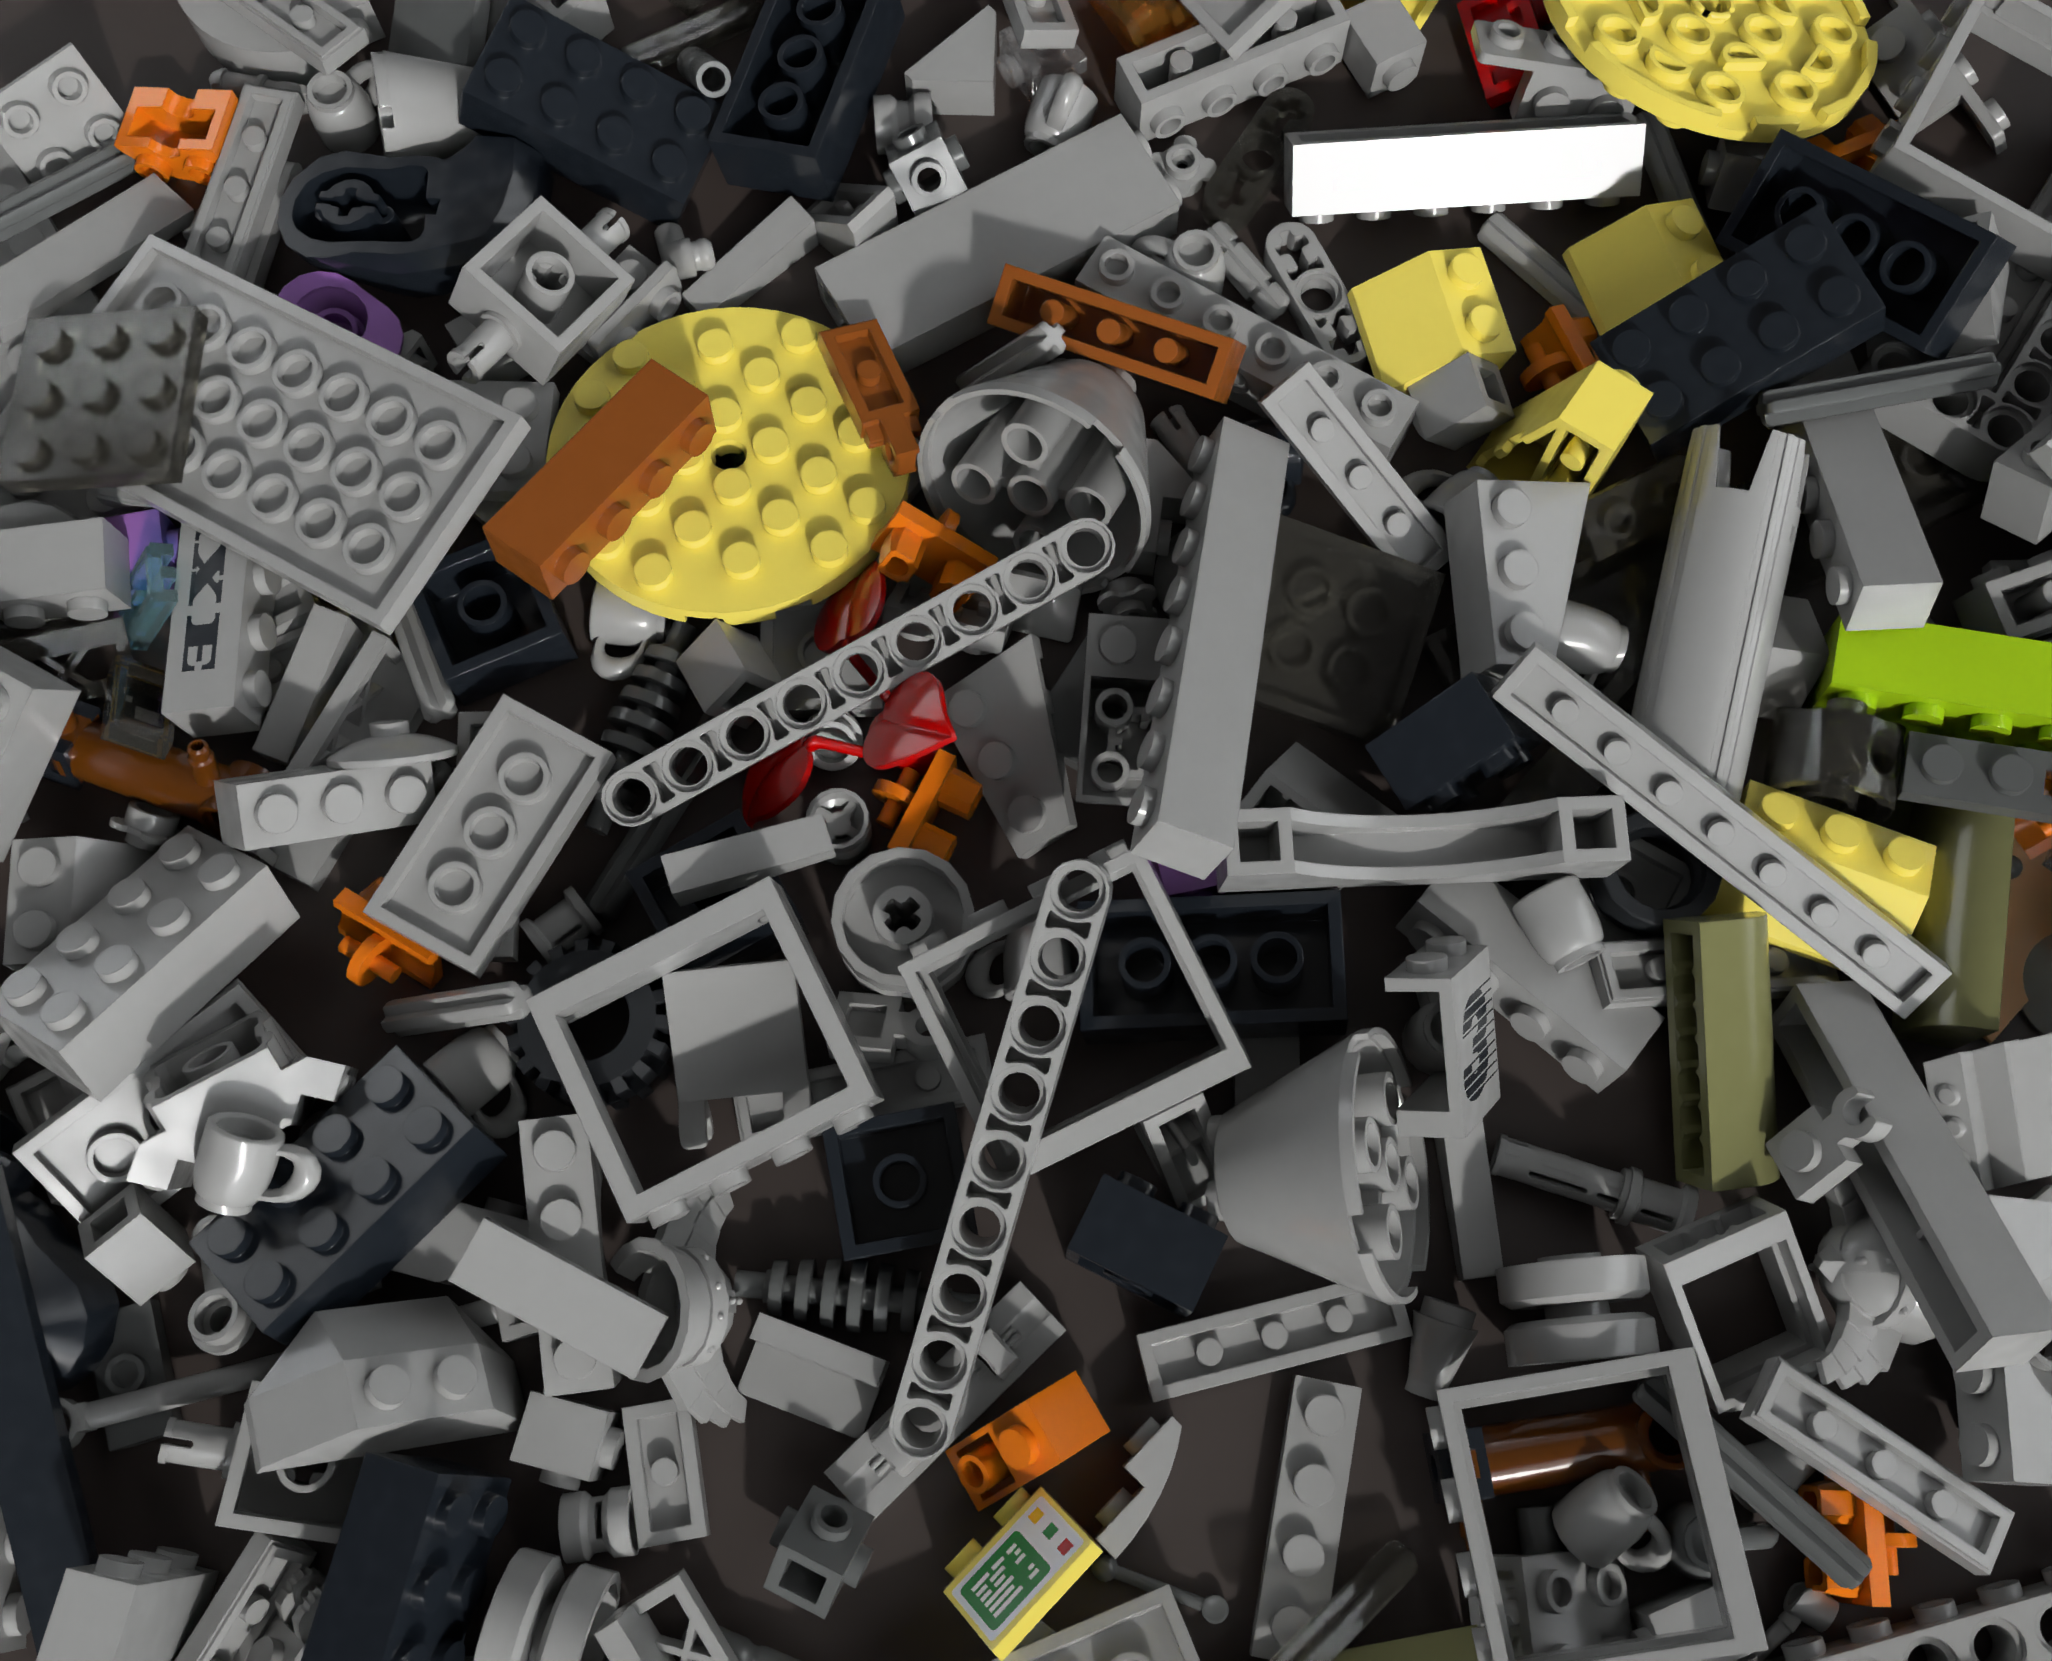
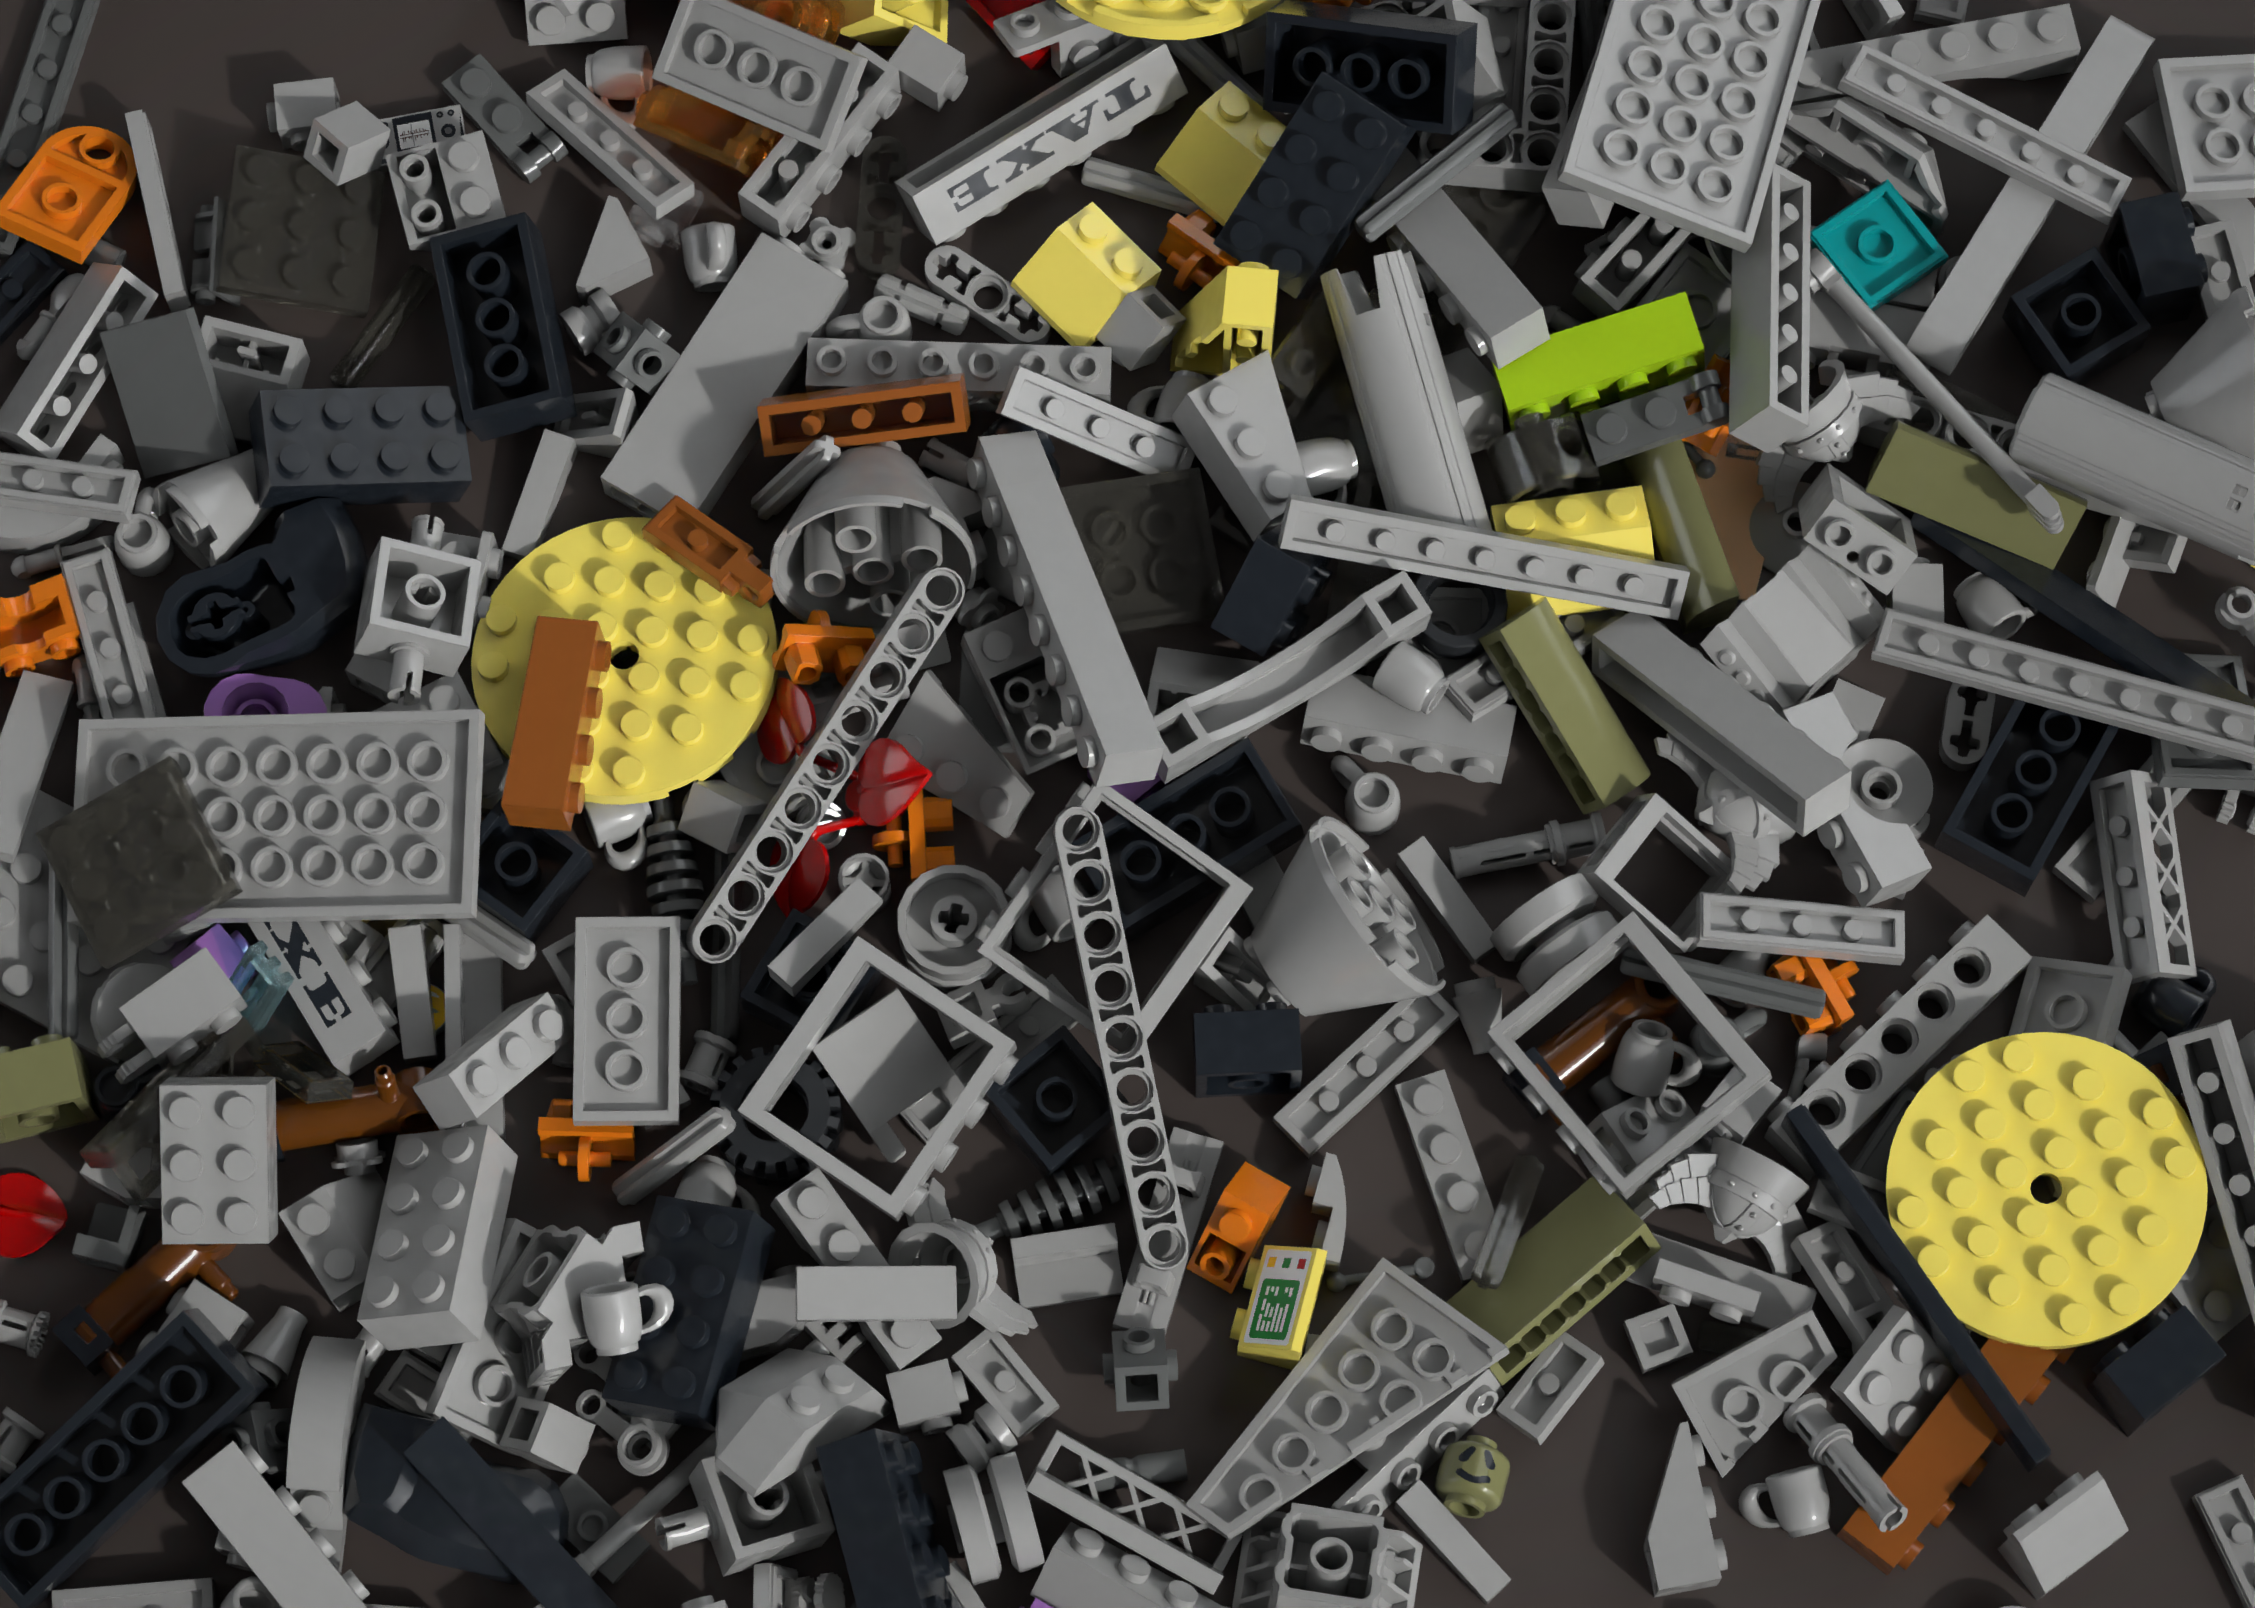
camera: 30 degrees left, 0 degrees up
(391, 746) = (515, 1000): light grey dish -> none
(682, 253) = (488, 518): light grey arm -> none
(703, 72) = (417, 364): dark grey piece -> none
(1458, 1099) = (1387, 789): light grey panel -> none
(1820, 1143) = (1656, 738): light grey plate -> none

